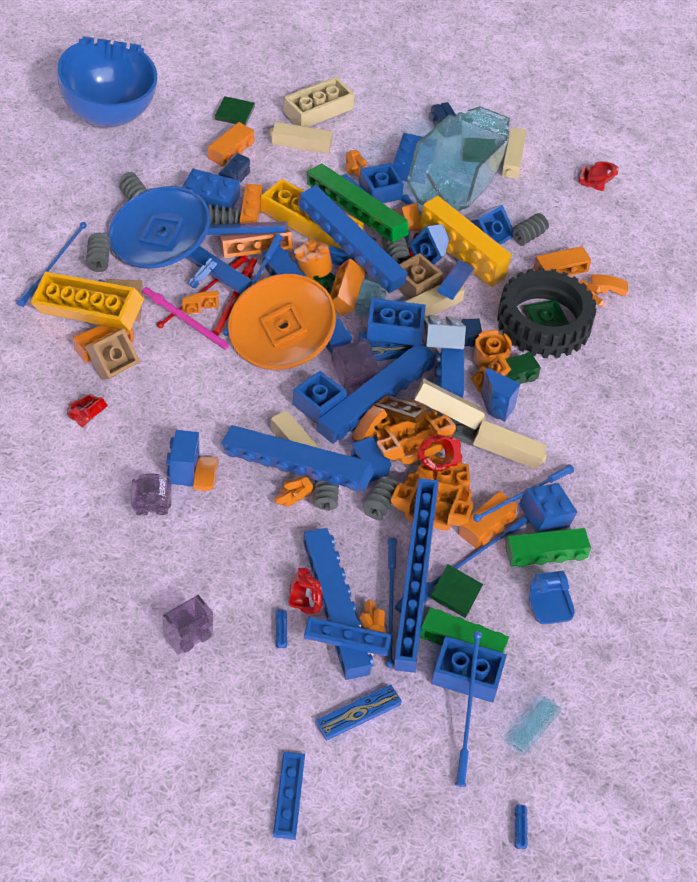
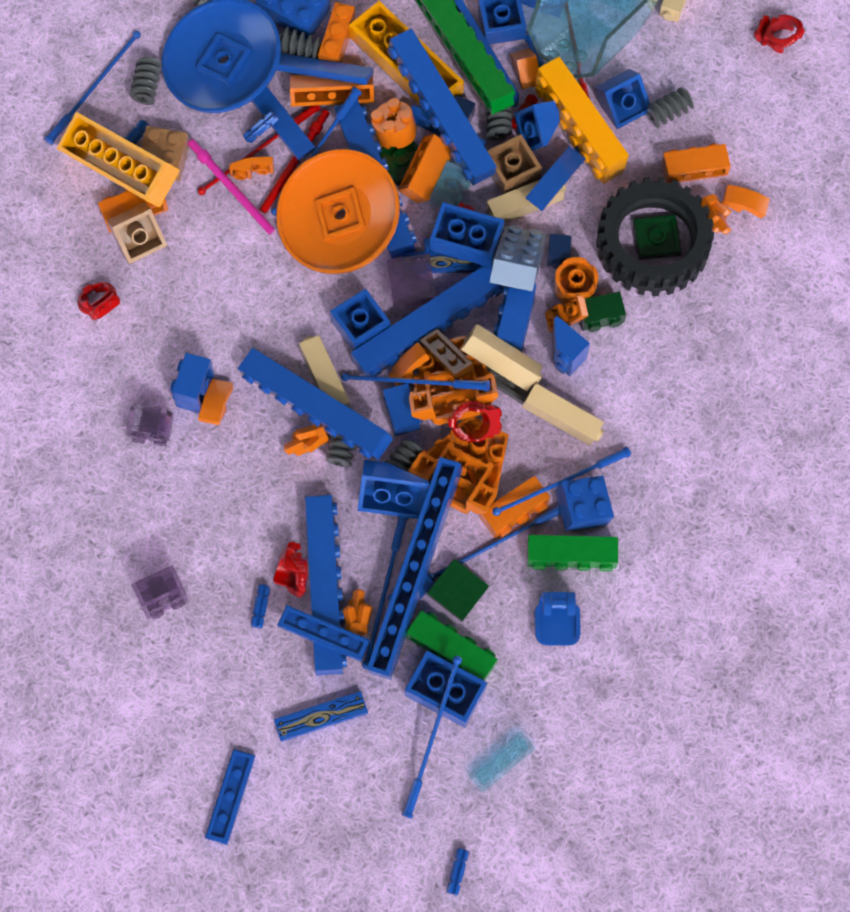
camera: 15 degrees right, 20 degrees up
(380, 516) = (391, 490): none -> blue slope
(417, 425) = (461, 384): none -> blue piece

